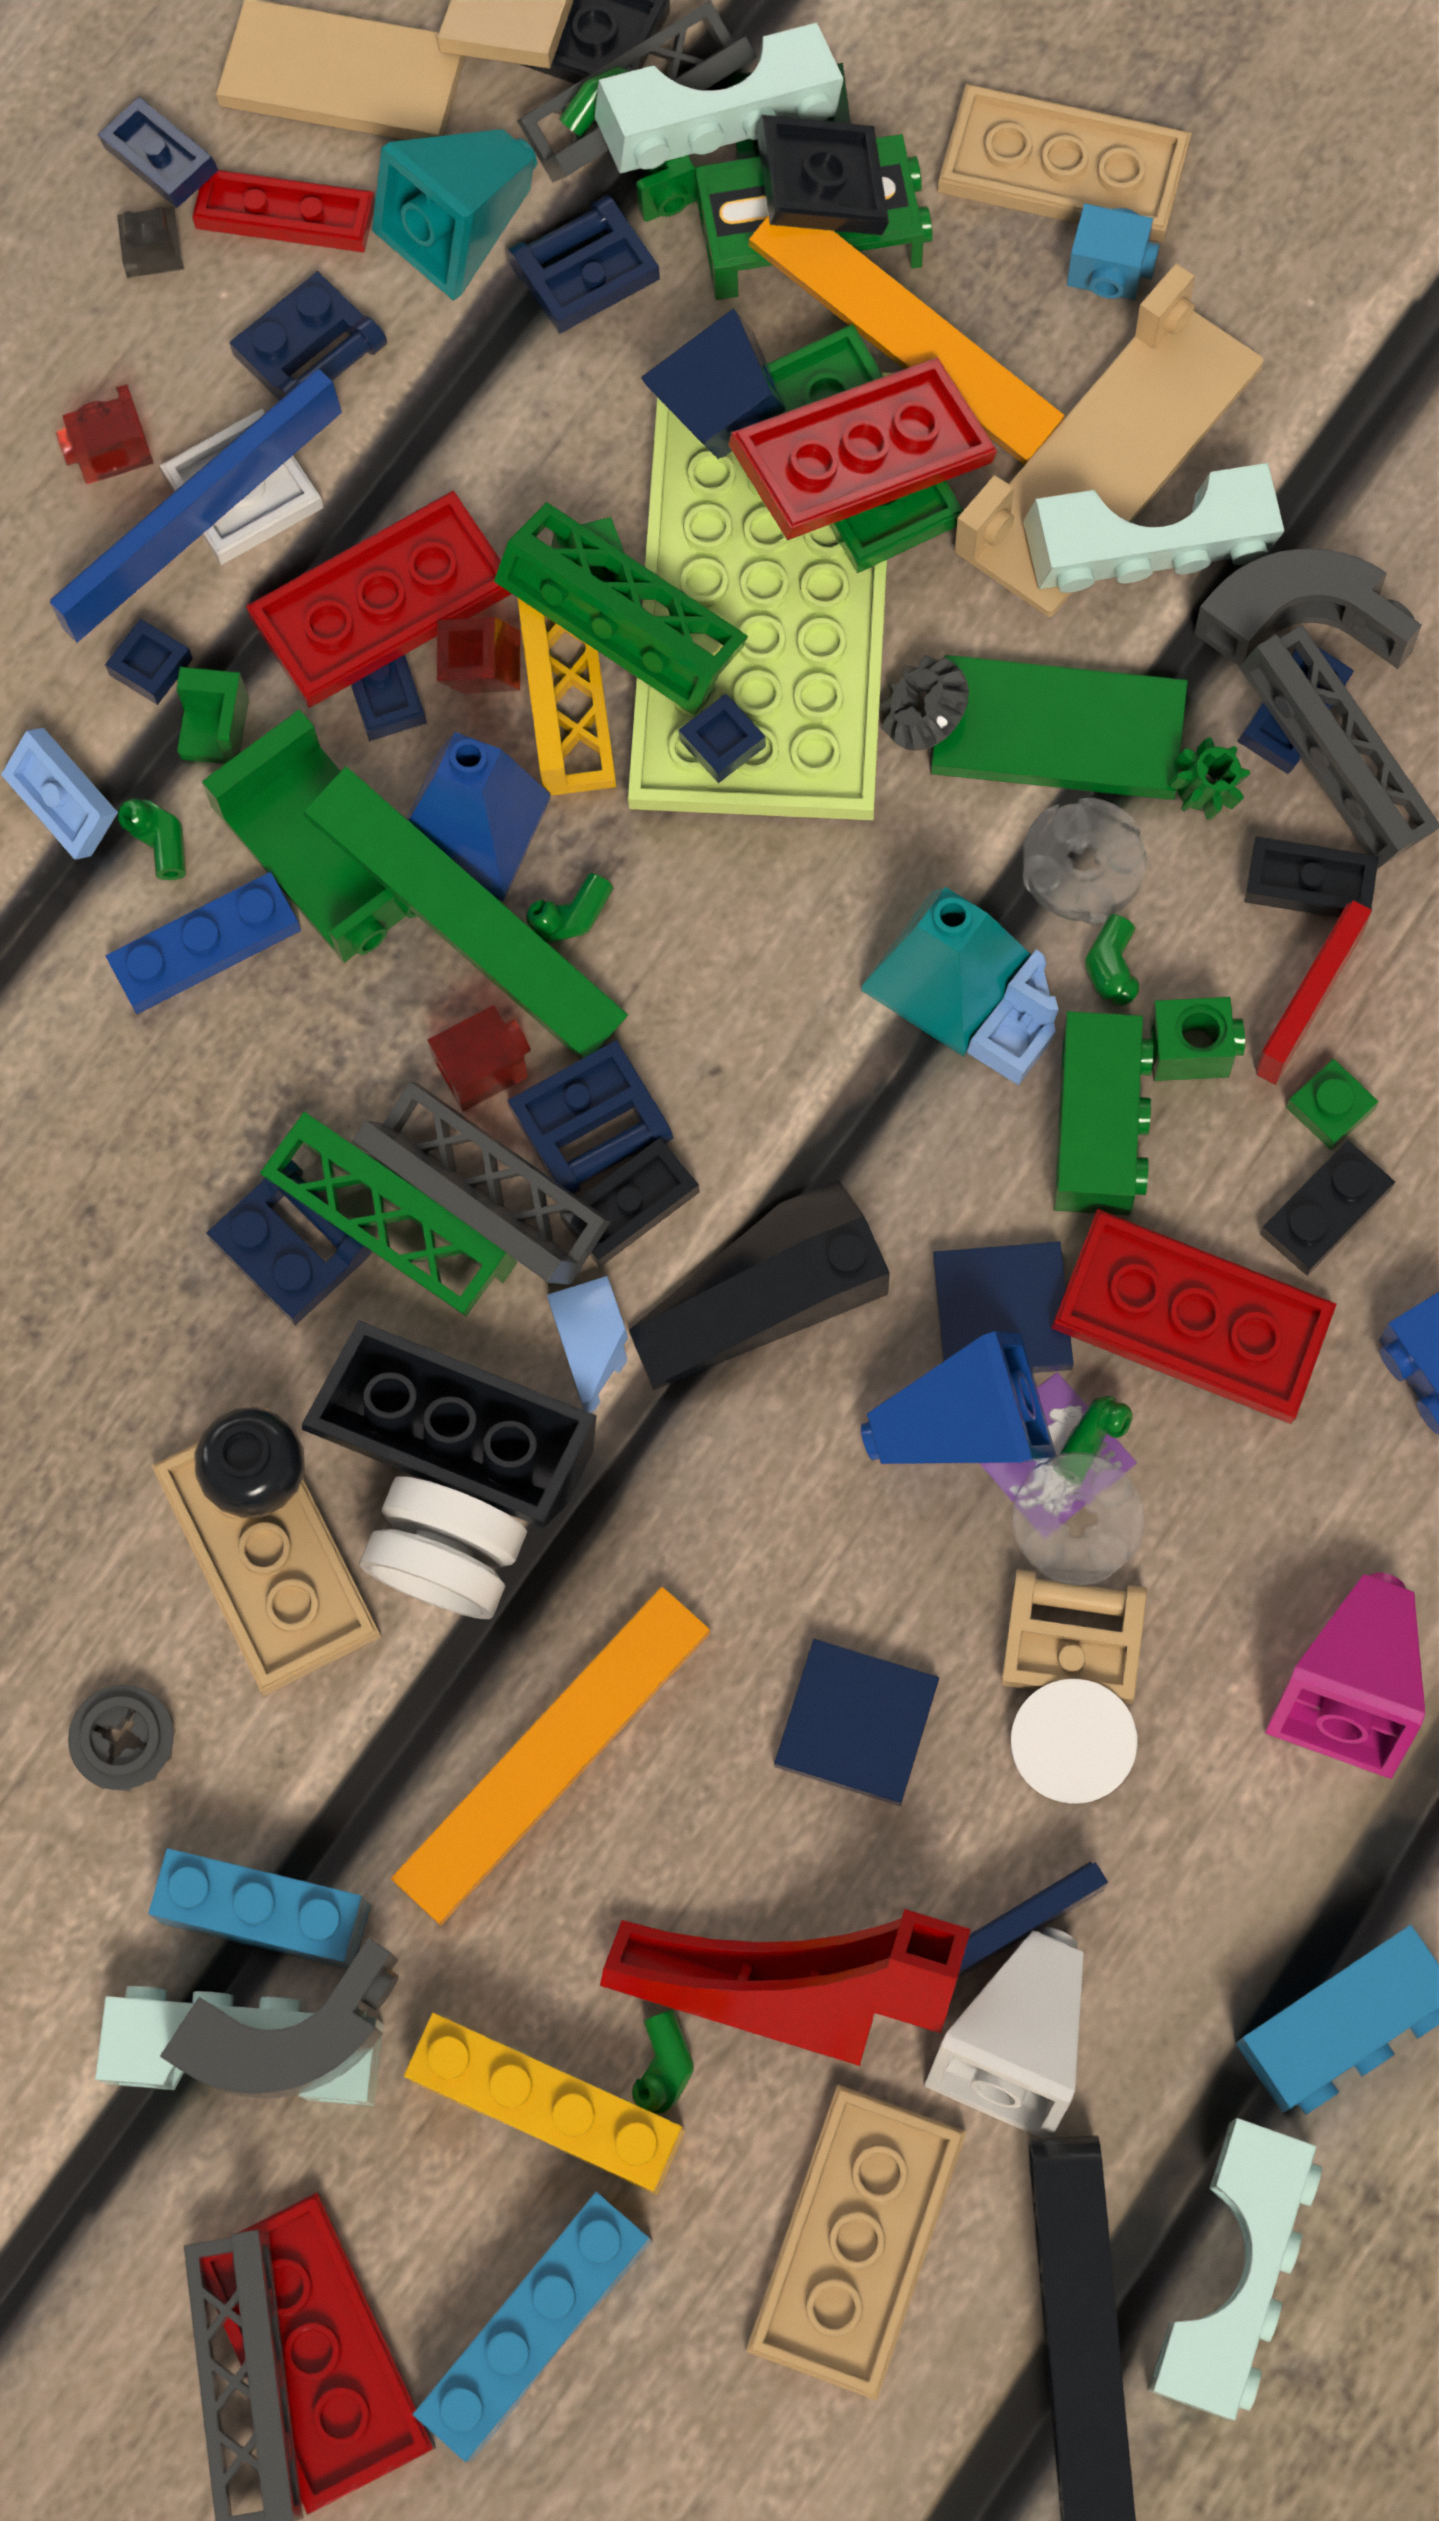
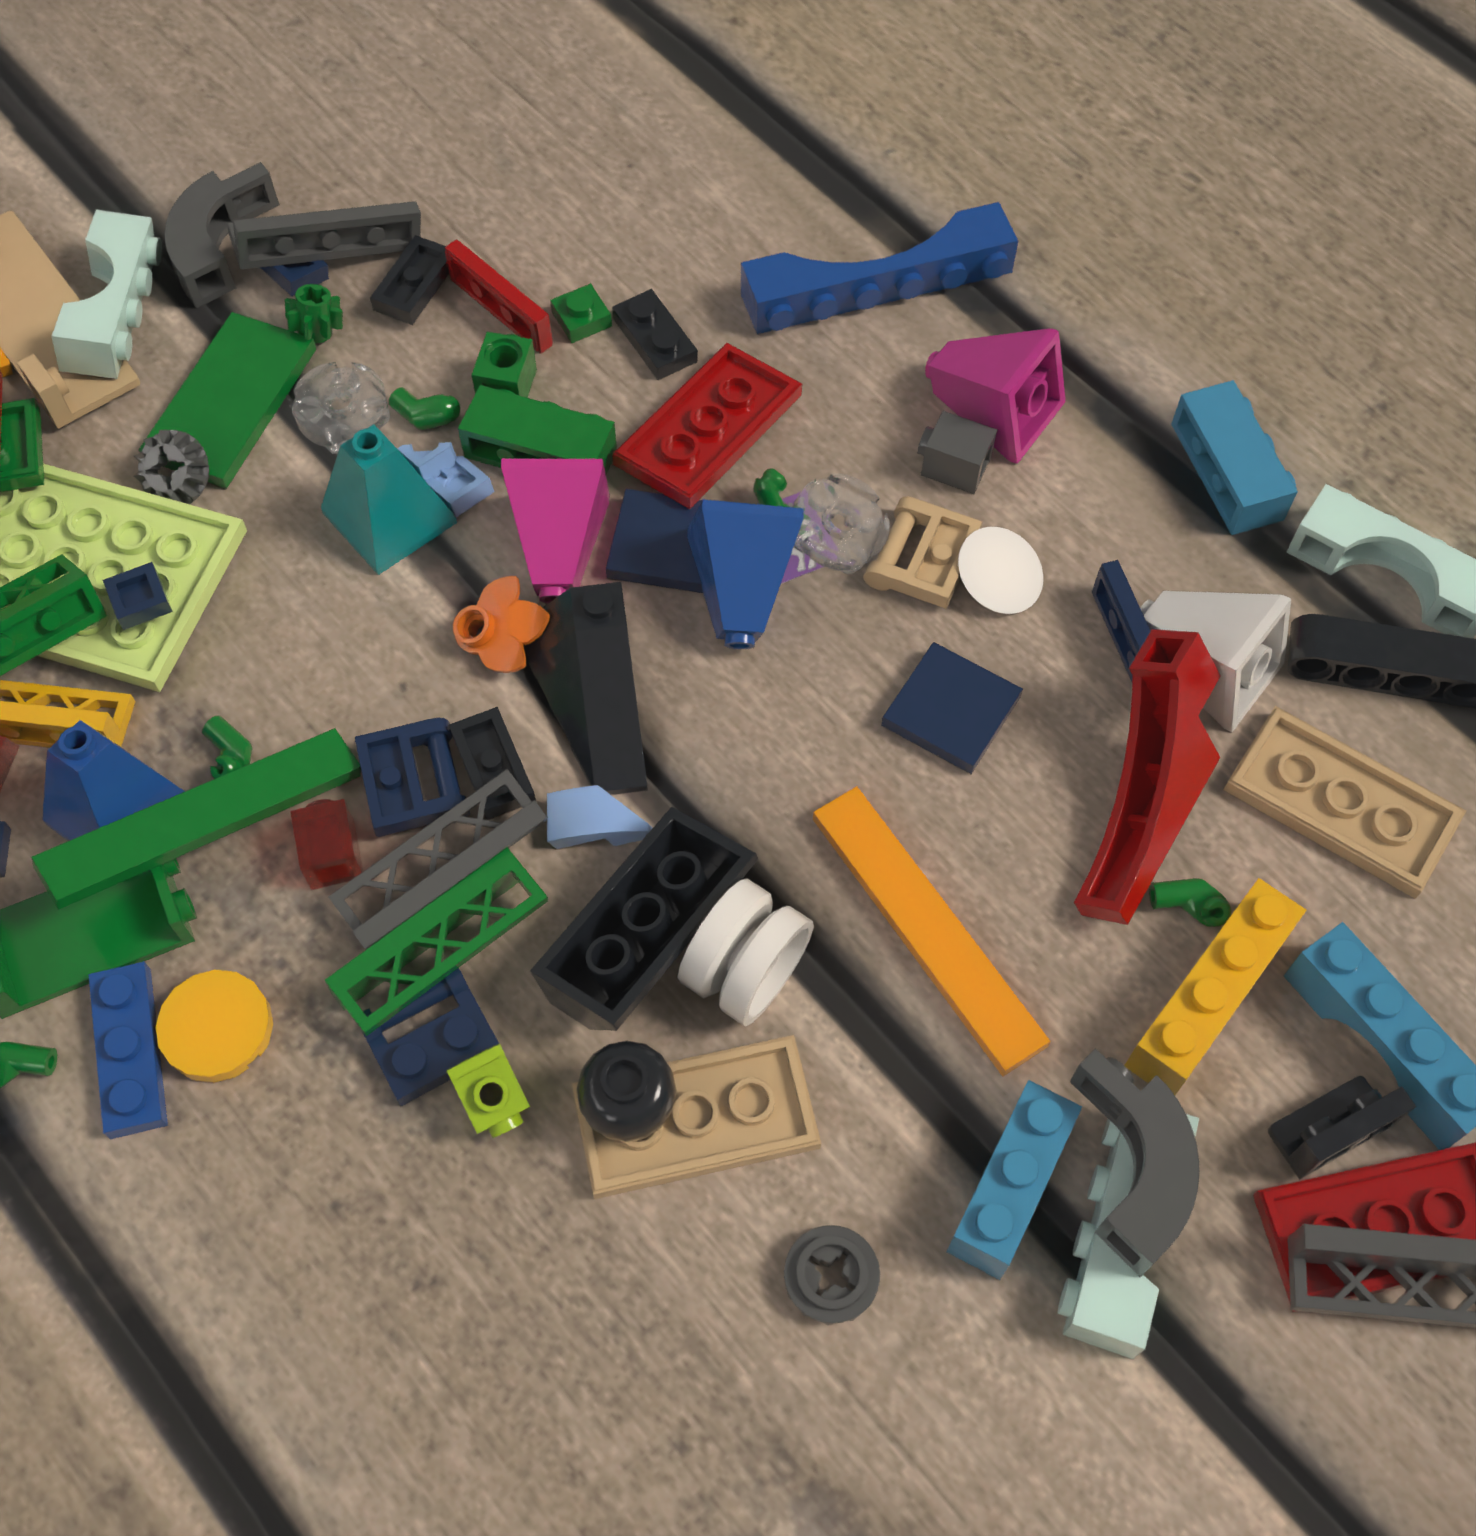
camera: 80 degrees left, 10 degrees down
(248, 1019) = (214, 1025): none -> yellow tile
(251, 1318) = (473, 1074): none -> lime brick
(410, 2271) = (1337, 1124): none -> black bracket
(814, 1159) = (506, 627): none -> orange plate
(967, 1171) = (557, 517): none -> dark pink slope
(1241, 1644) = (956, 451): none -> dark grey brick

